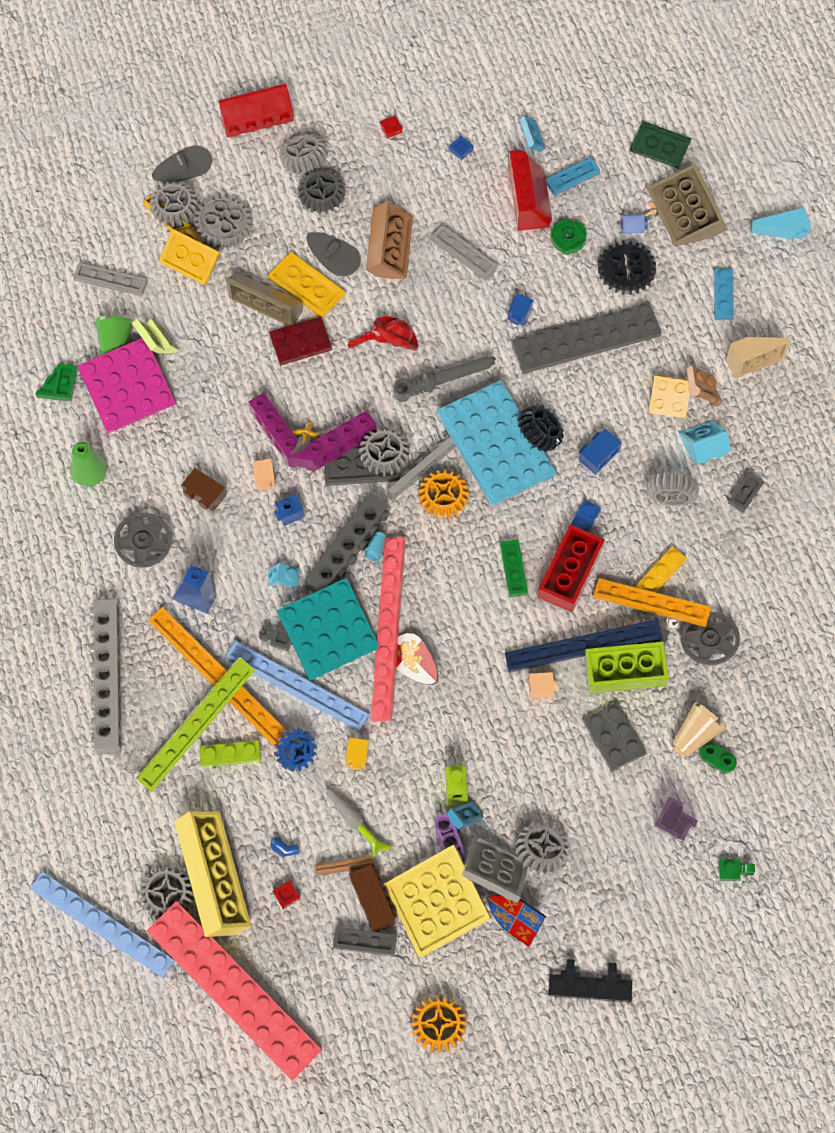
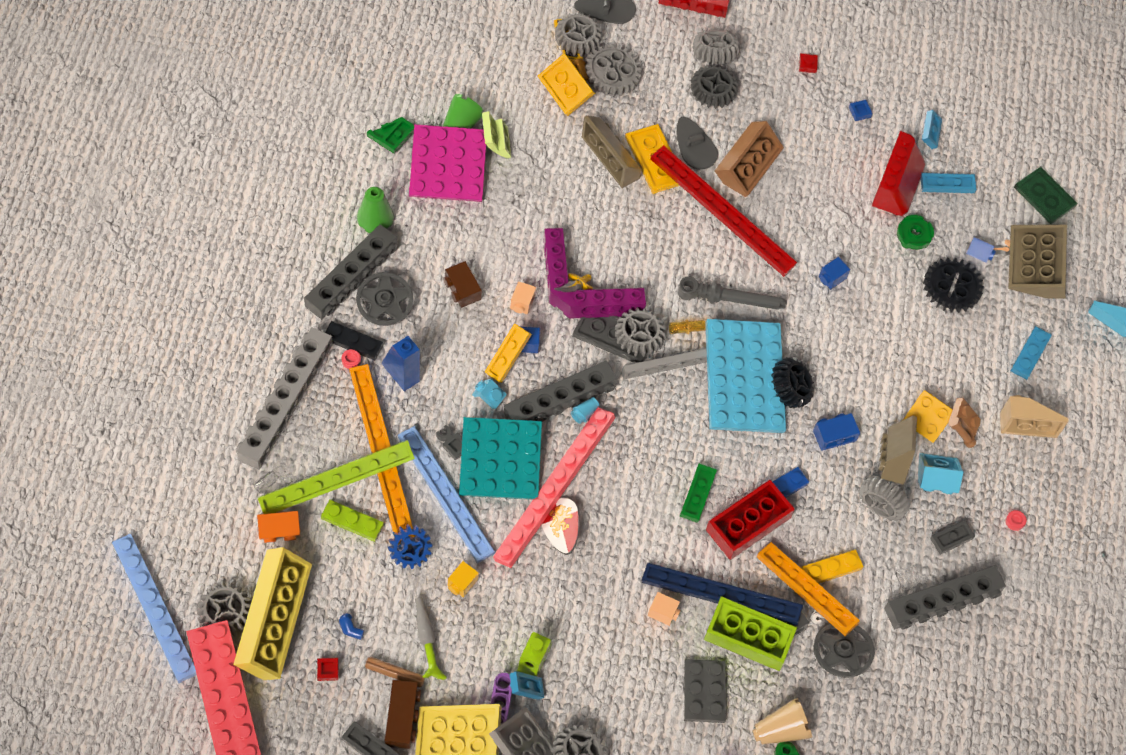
camera: 20 degrees right, 5 degrees down
(105, 486) = (353, 262): none -> dark grey brick
(110, 279) = (488, 70): light grey tile -> none
(136, 591) = (351, 339): none -> black plate
(143, 610) = (351, 358): none -> coral tile
(170, 793) = (278, 526): none -> orange brick
(281, 531) = (508, 353): none -> yellow plate
(300, 341) = (622, 202): dark red plate -> none
(391, 331) = (706, 232): red hat -> none
(393, 302) = (723, 211): none -> red plate
(421, 425) = (686, 326): none -> clear yellow axle
(443, 484) = (667, 404): light orange gear -> none
(464, 252) = (811, 199): light grey plate -> none
(586, 338) = (881, 327): dark grey plate -> none
(664, 441) = (898, 450): none -> dark tan slope
(789, 449) = (1016, 520): none -> coral tile
(796, 512) = (988, 577): none -> dark grey brick

